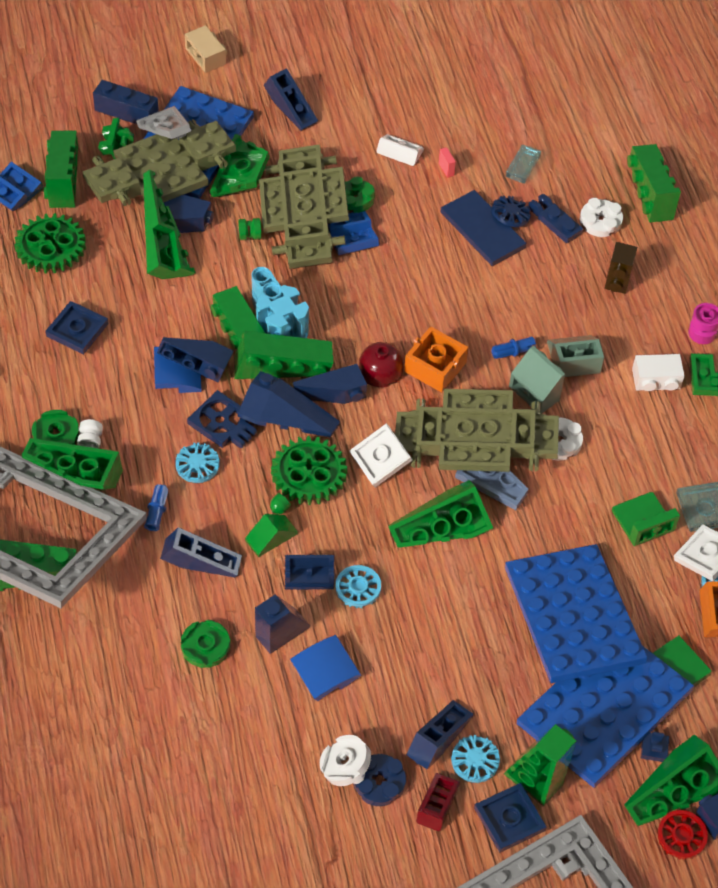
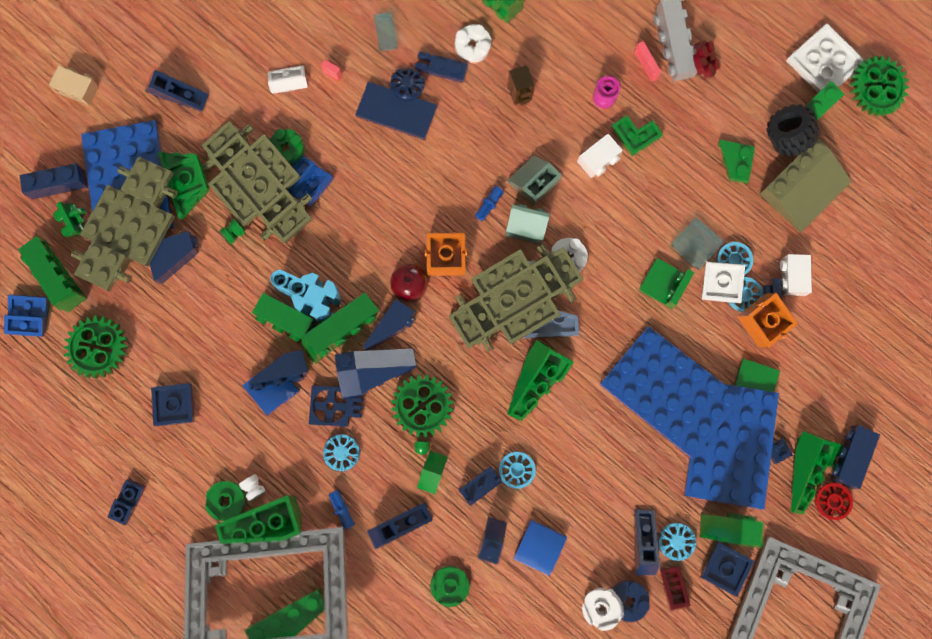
camera: 35 degrees left, 25 degrees up
(163, 250) = (183, 294): green wedge -> none
(165, 123) = (102, 184): light grey wing -> none
(380, 455) = (462, 359): white tile -> none

